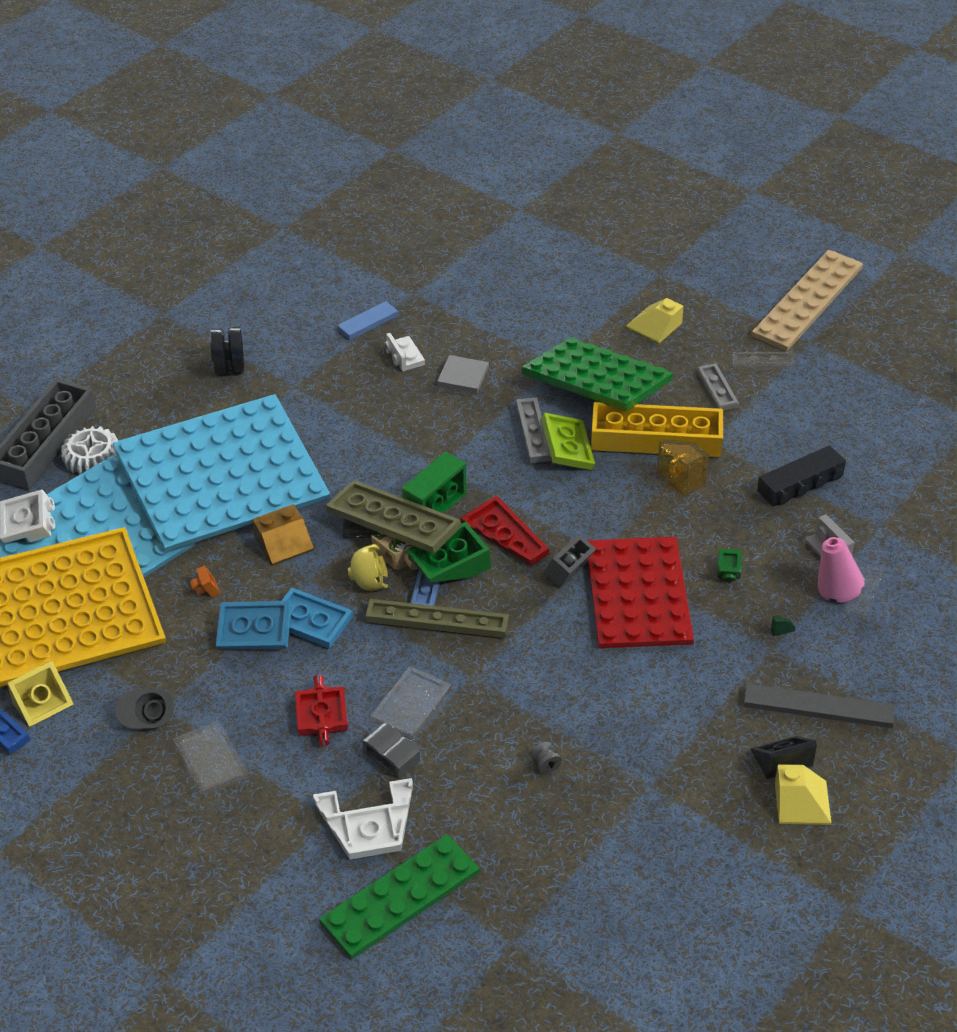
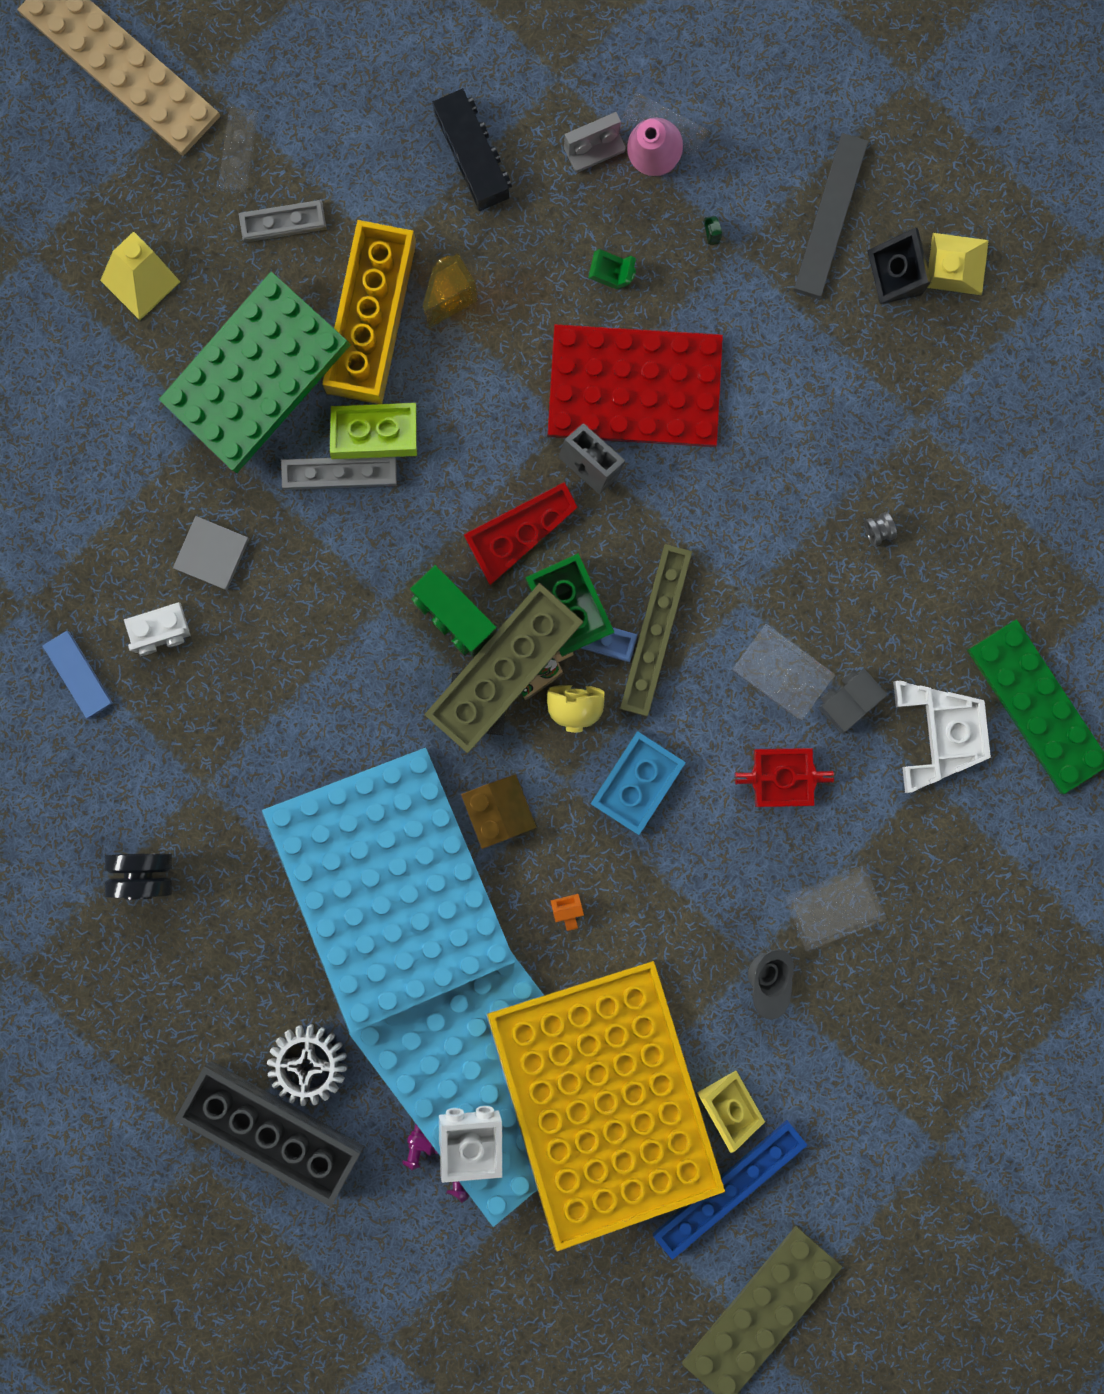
camera: 90 degrees left, 40 degrees up
(253, 625) = (652, 852): dark azure plate -> none

